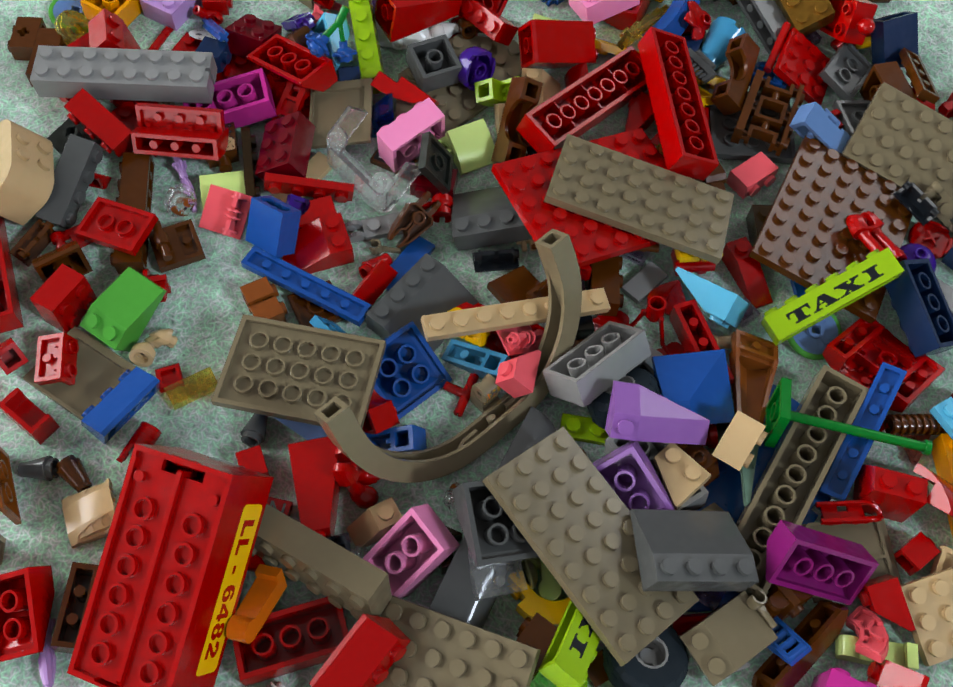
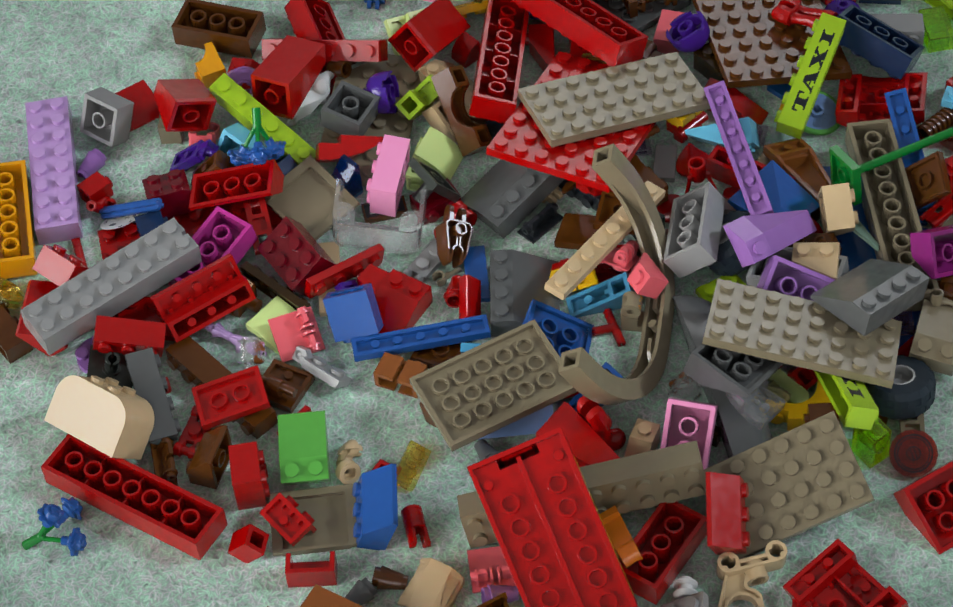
camera: 30 degrees left, 10 degrees down
(214, 254) = (318, 367): none -> light grey hinge
(697, 321) = (738, 149): none -> medium lavender plate
(760, 185) = (688, 32): none -> dark purple cylinder
(852, 475) = (928, 179): none -> reddish brown tile

